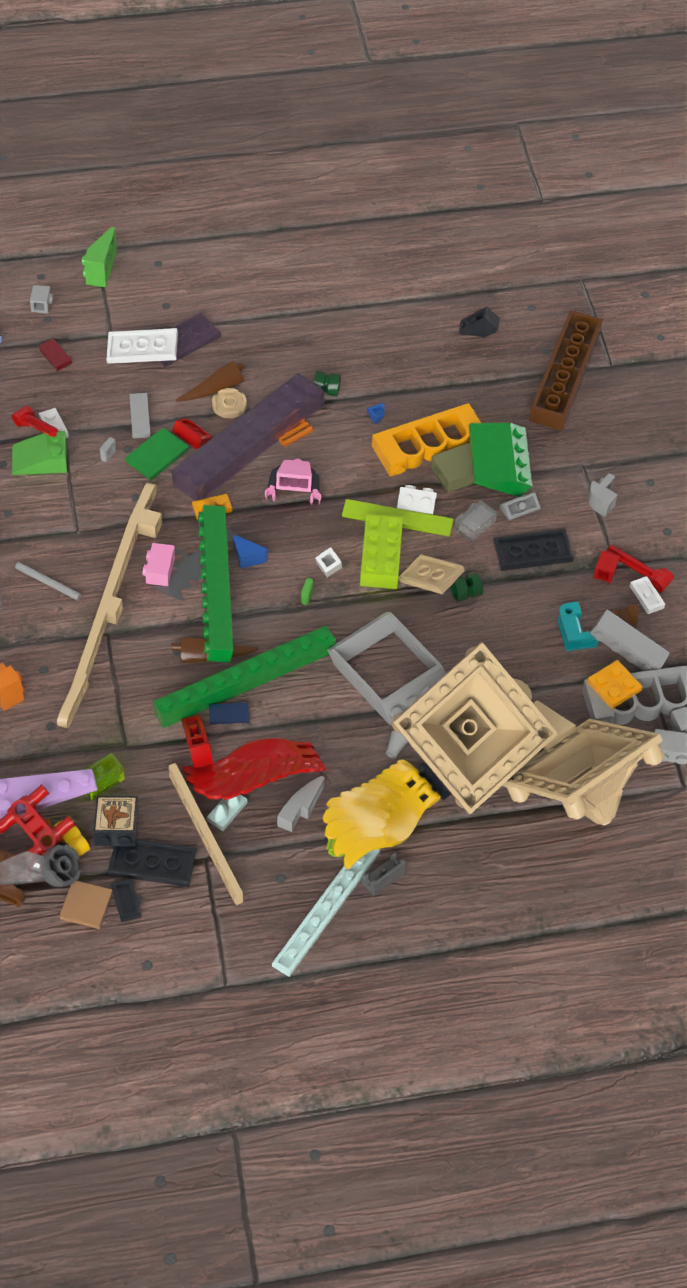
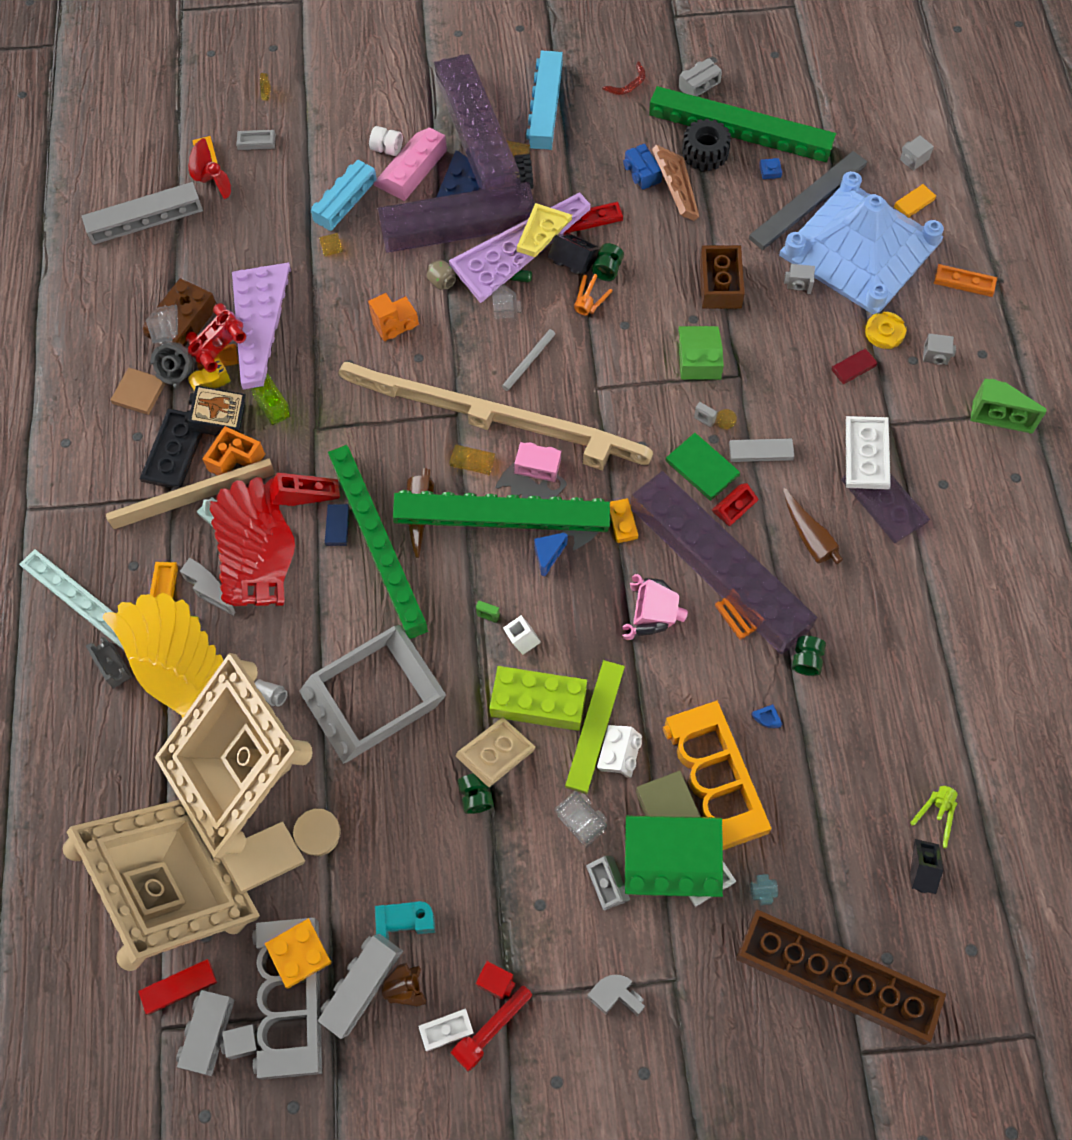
camera: 100 degrees right, 10 degrees up
(17, 334) = (885, 330): none -> yellow tile
(26, 417) = (752, 334): red axle -> none
(52, 417) = (747, 364): white plate -> none
(110, 433) = (726, 418): none -> clear yellow plate
(126, 900) = (136, 425): black tile -> none
(156, 616) = (472, 459): none -> clear yellow plate
(159, 802) = (232, 448): none -> orange brick
(229, 403) = (782, 546): tan tile -> none
(298, 846) = (164, 578): none -> light orange tile
(429, 312) = (945, 801): none -> lime plant
(512, 411) = (764, 889): none -> clear light blue gear
(533, 549) = (535, 890): black tile -> none
(655, 782) = (177, 987): none -> red tile

